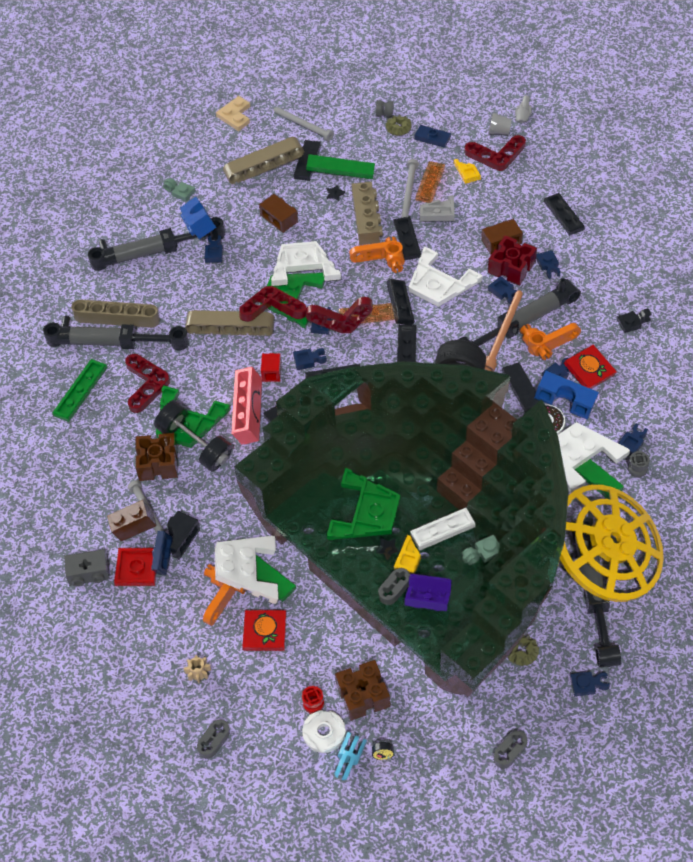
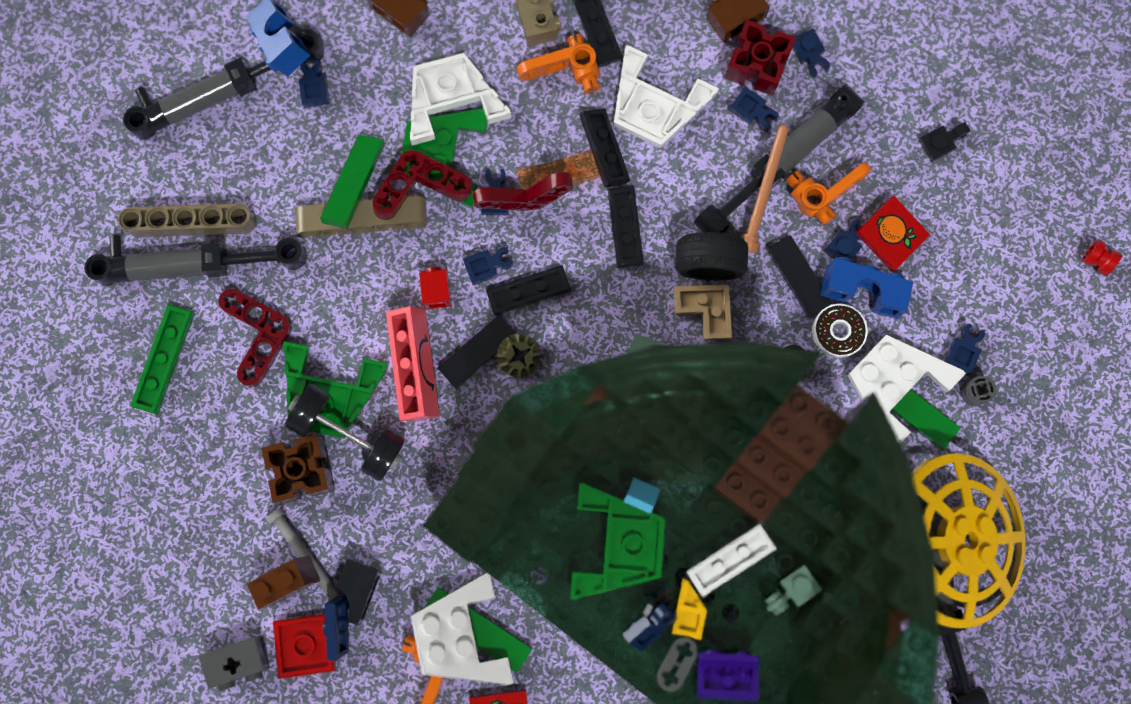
camera: 10 degrees left, 25 degrees up
(228, 300) = (352, 181): none -> green tile
(376, 561) = (648, 629): none -> dark blue plate
(386, 481) = (642, 495): none -> medium azure tile

